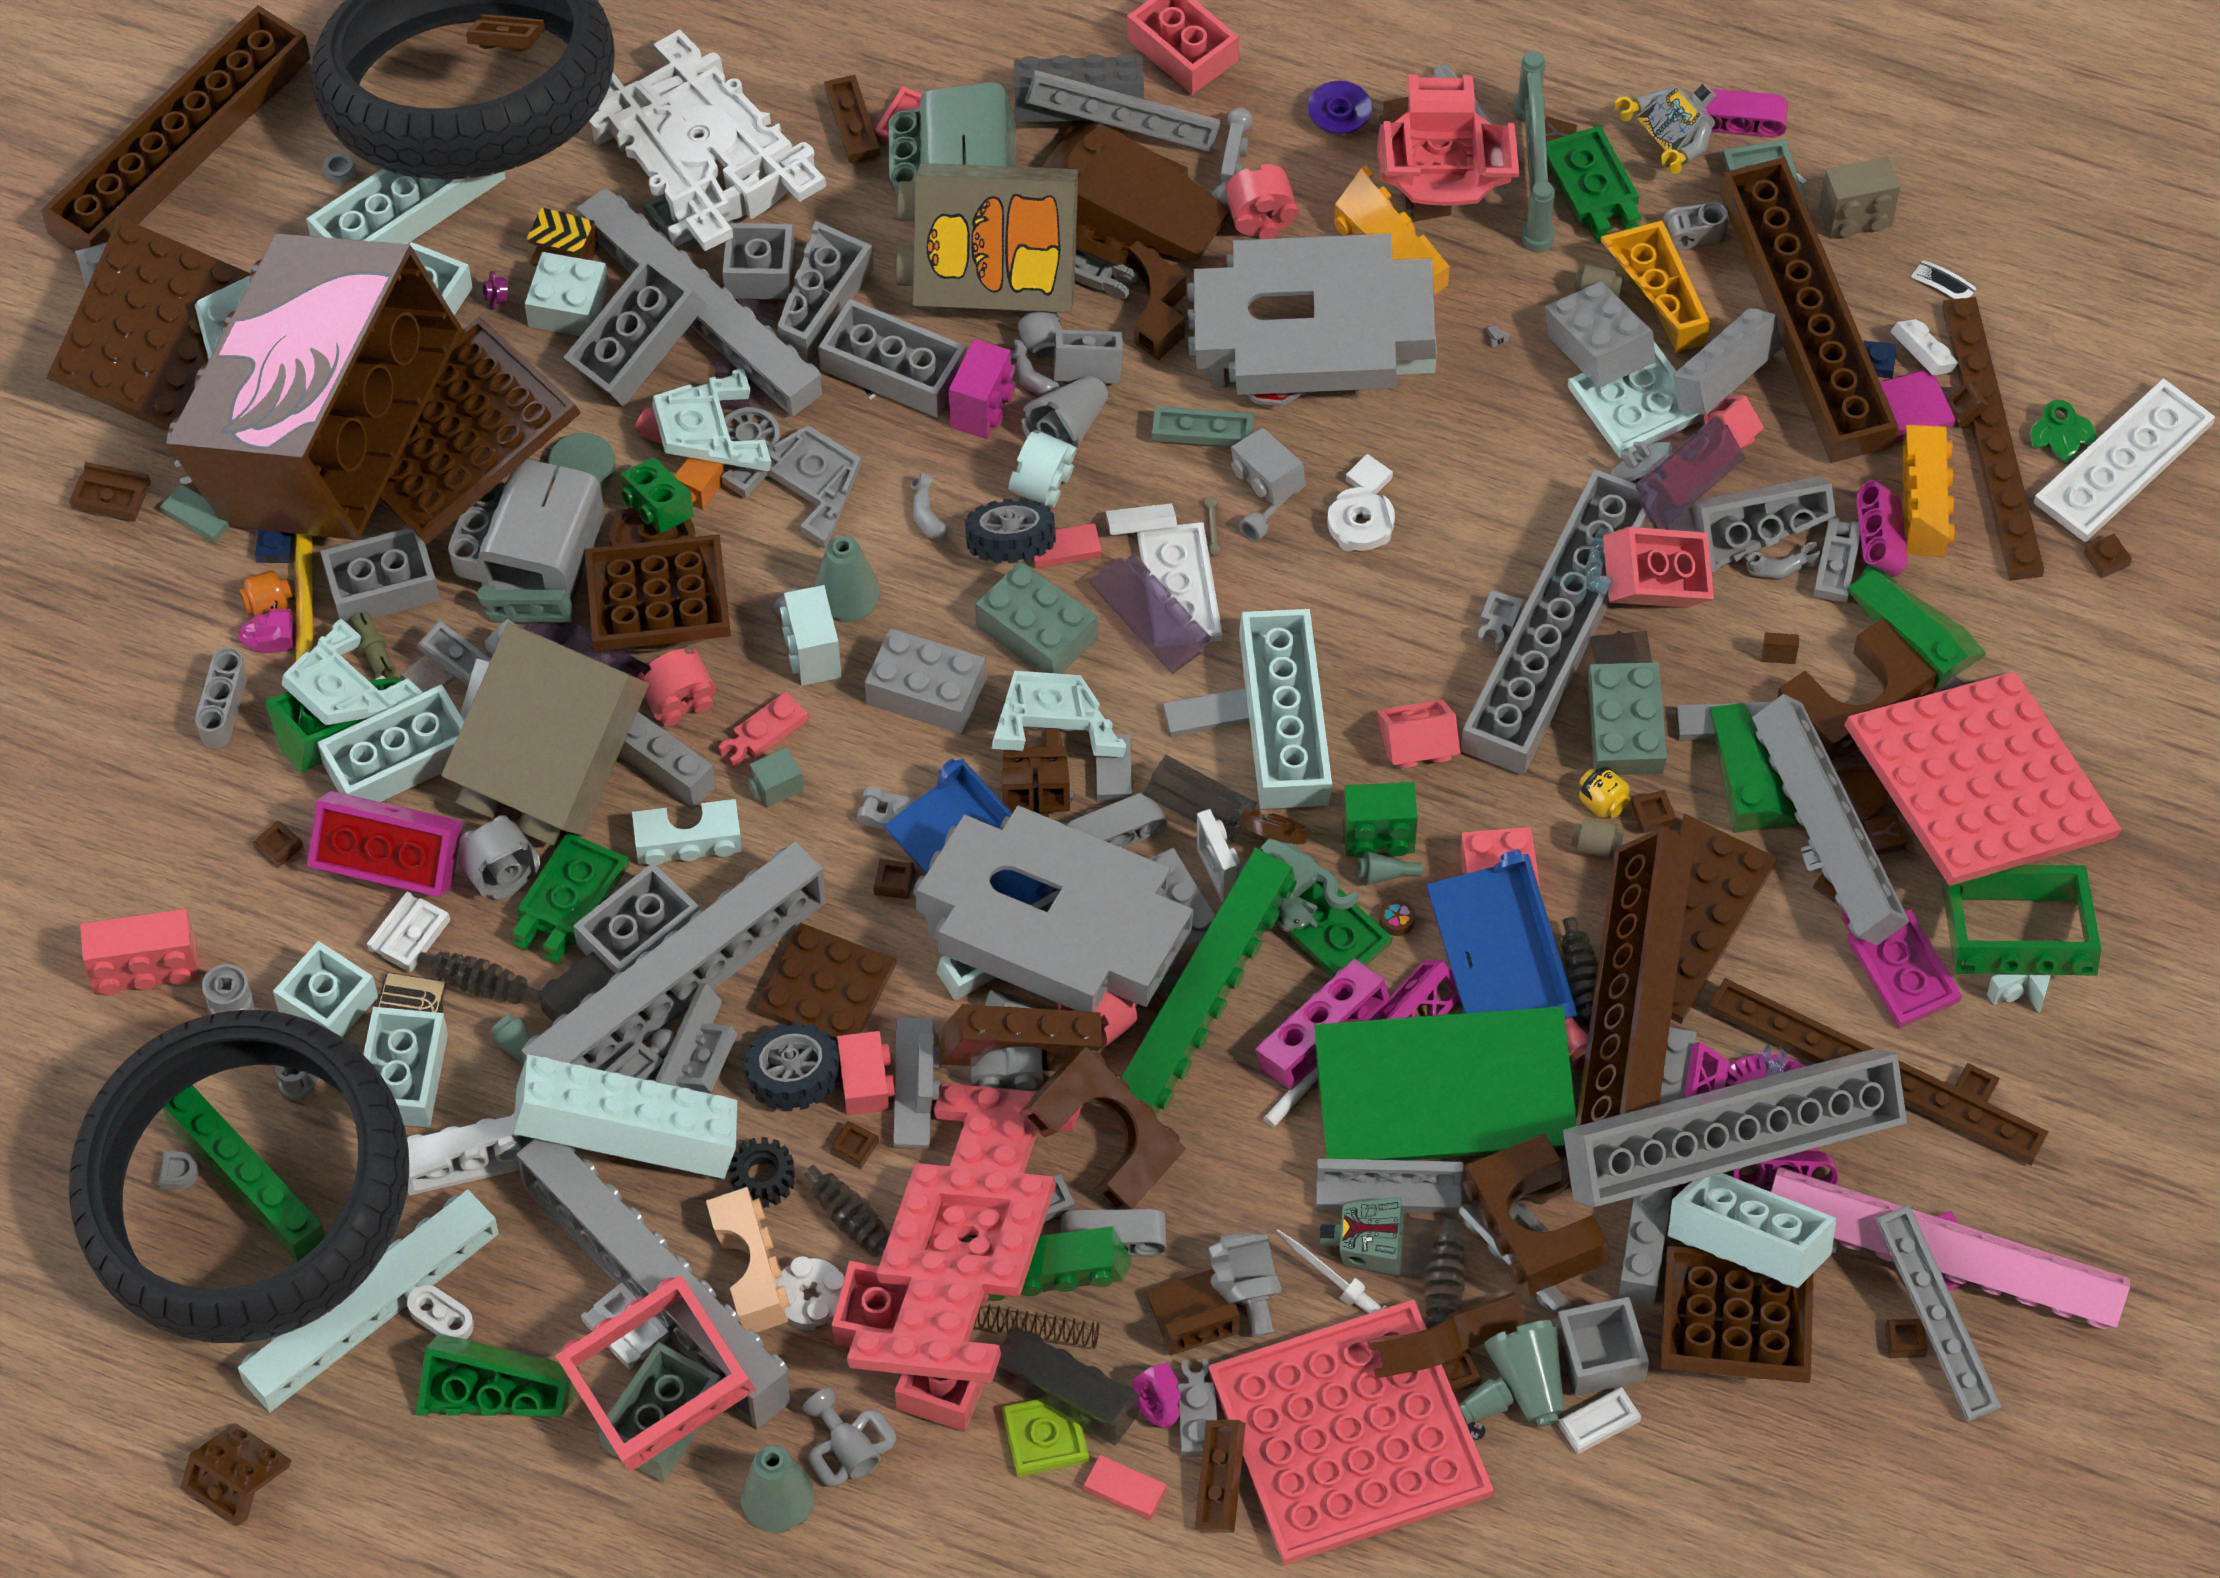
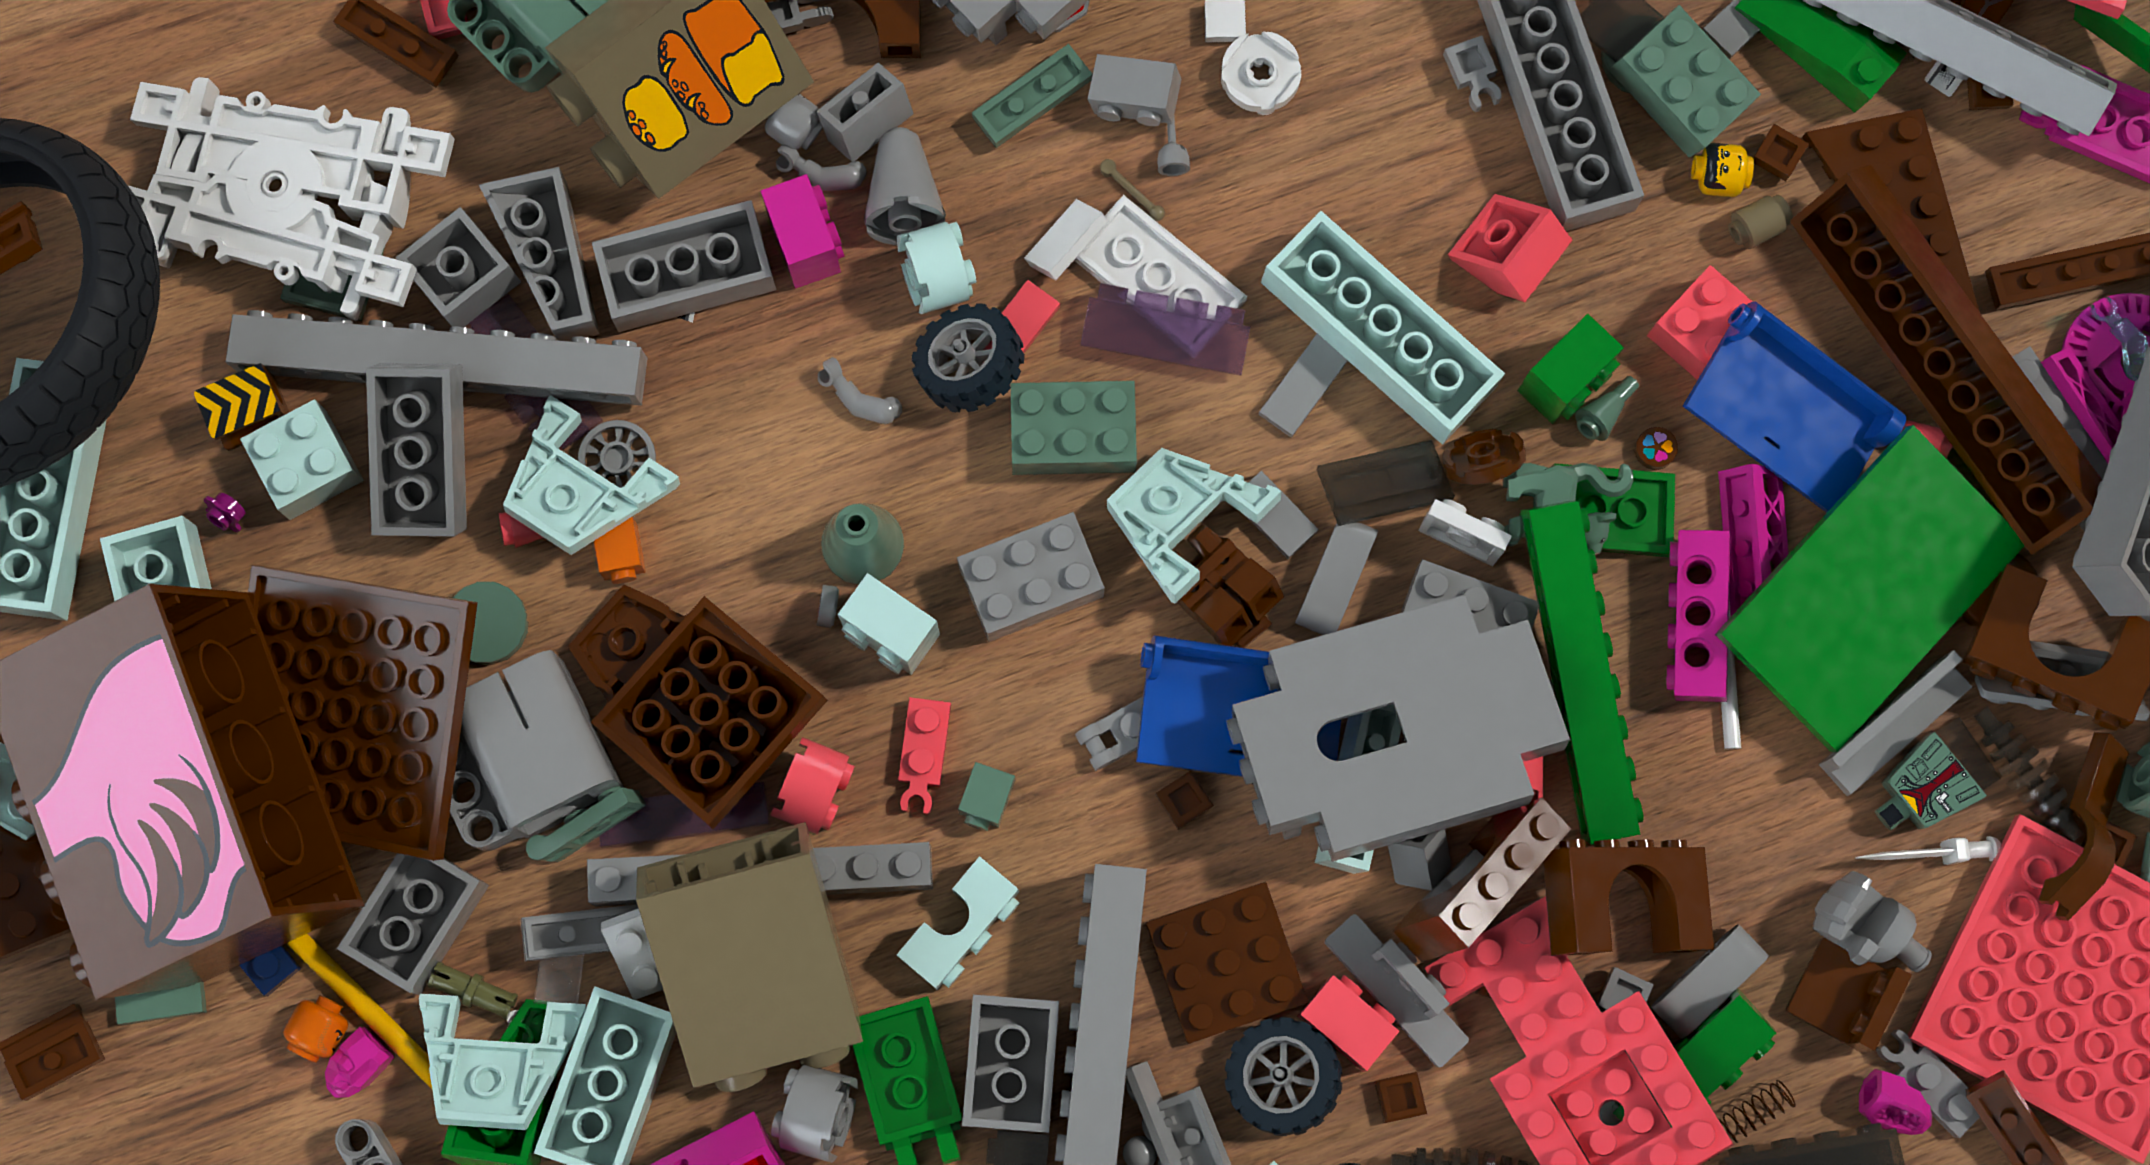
camera: 45 degrees left, 20 degrees up
(656, 495) = (602, 595): green brick -> none
(813, 469) = (715, 444): light grey wing -> none
(1579, 968) = (1871, 371): clear smoke piece -> none

